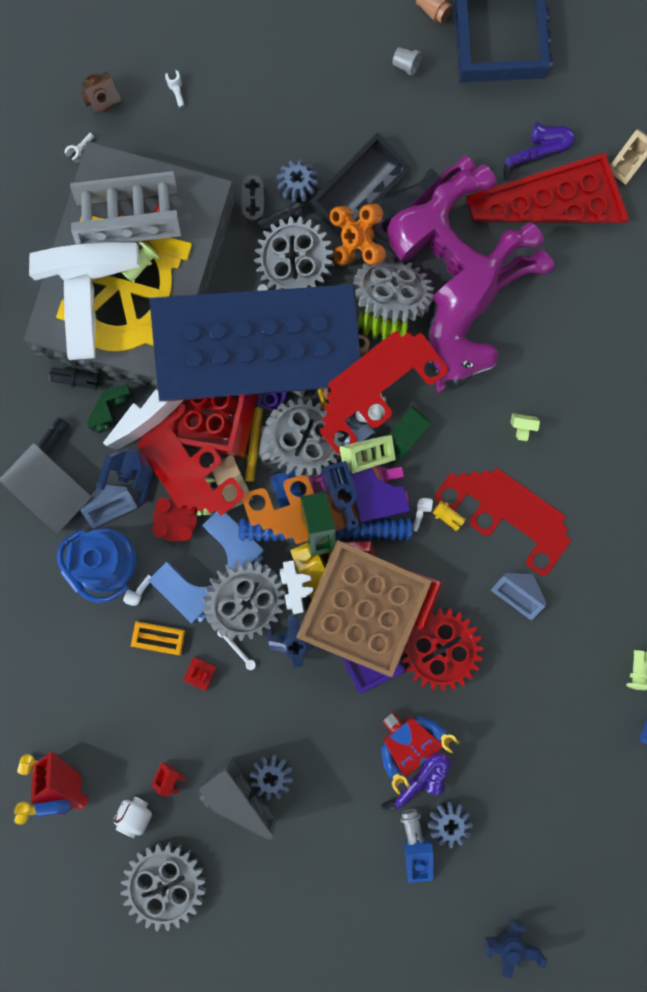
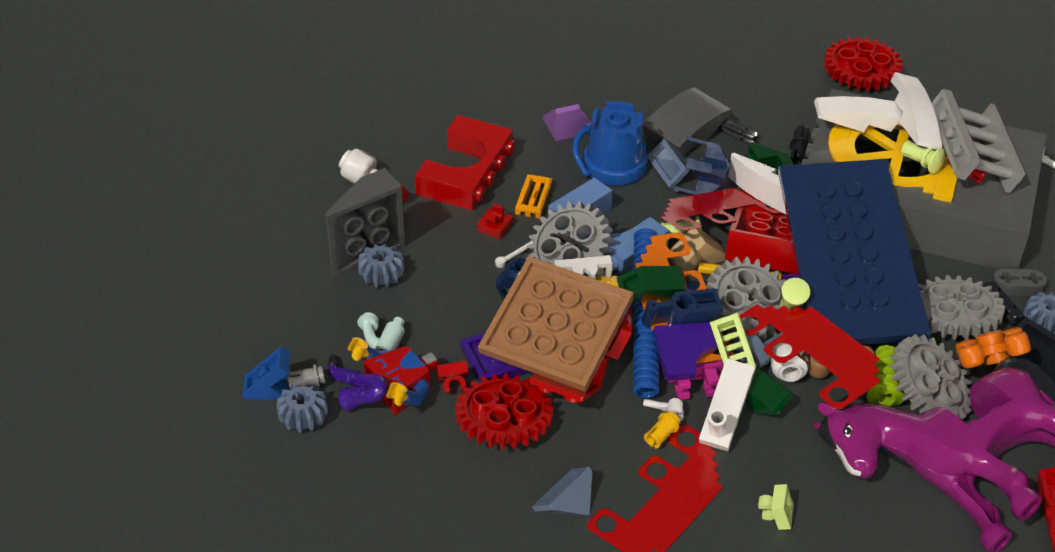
camera: 90 degrees right, 40 degrees down
(46, 610) = (566, 121): none -> medium lavender slope
(53, 788) = (396, 108): red torso -> none
(133, 598) = (576, 178): white hand -> none
(154, 704) = (467, 185): none -> red arch
(173, 522) = (652, 205): red piece -> none
(173, 907) = (269, 192): light grey gear -> none
(318, 397) = (794, 293): none -> yellowish green pin
(360, 757) = (390, 337): none -> light aqua plant
(401, 698) = (452, 372): none -> red tile
(429, 461) = (727, 405): none -> white piece
(513, 949) = (148, 452): dark blue piece -> none

